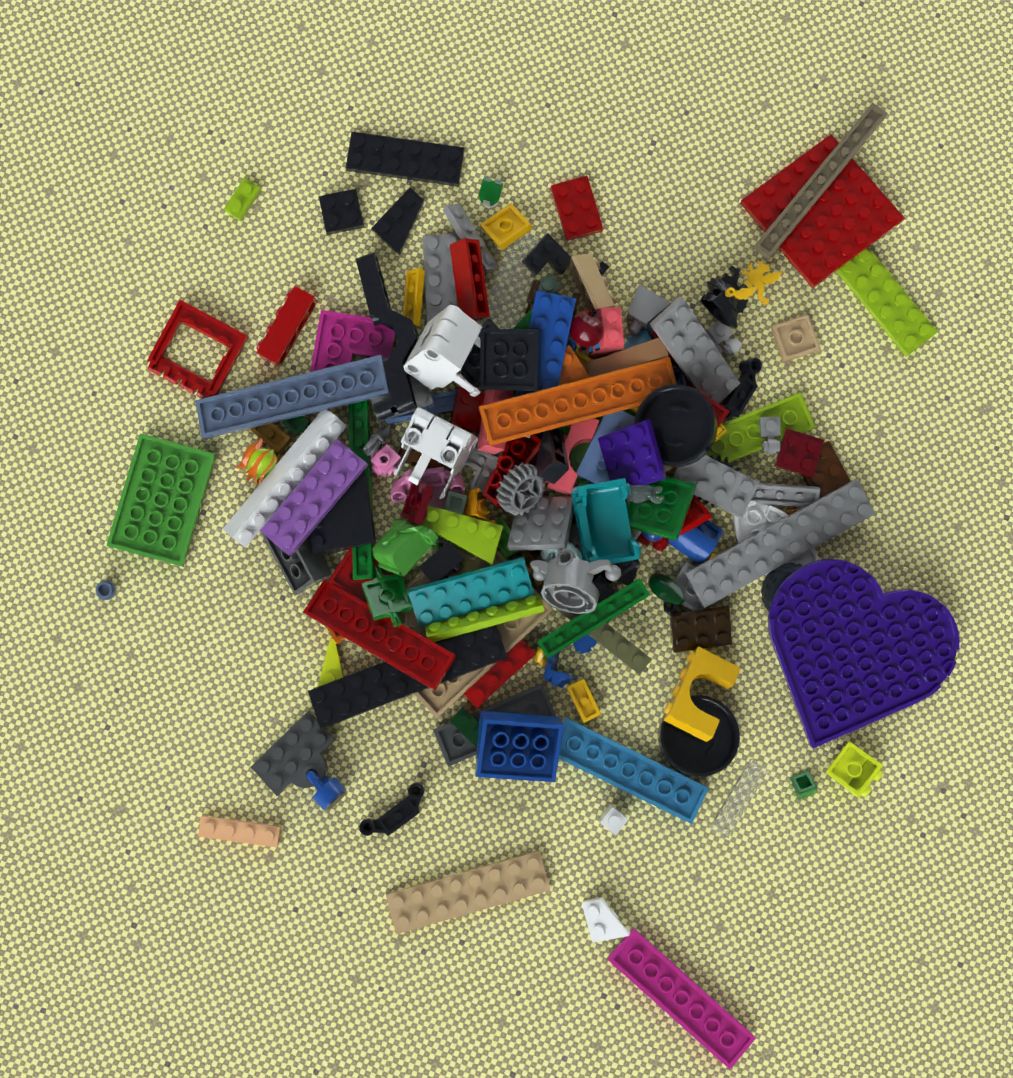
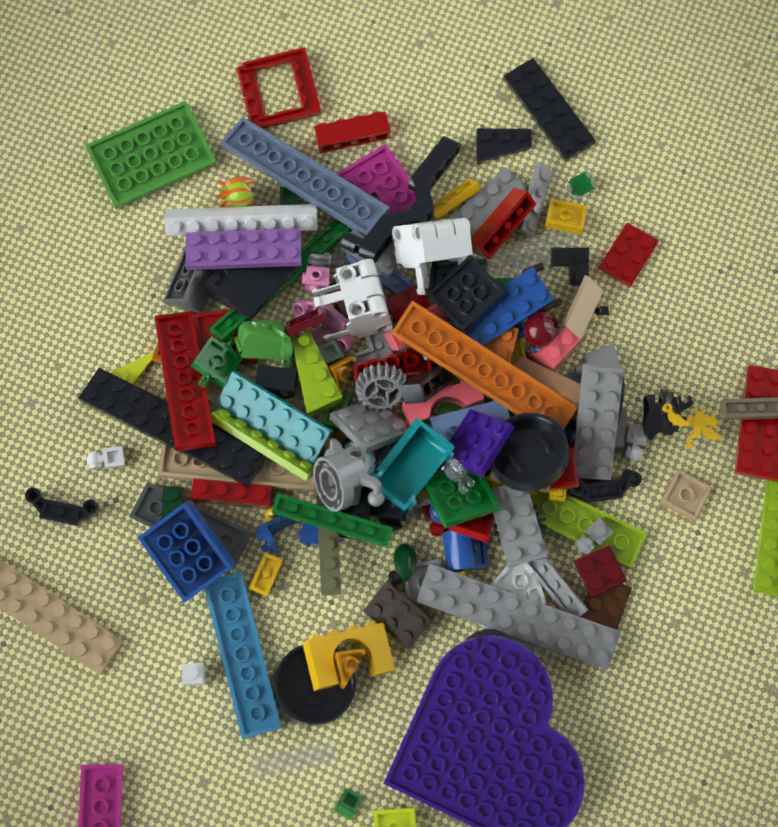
camera: 50 degrees right, 10 degrees down
(105, 590) = (52, 172): sand blue plate -> none
(242, 199) = (415, 28): lime plate -> none
(272, 436) = (264, 189): pearl gold plate -> none
(300, 761) = (41, 408): dark grey plate -> none
(341, 211) = (469, 99): black plate -> none
(388, 740) = (111, 457): none -> white plate
(549, 285) = (553, 283): sand green plate -> none
(602, 921) = (108, 735): white wing -> none
(708, 701) = (346, 663): none -> light orange slope

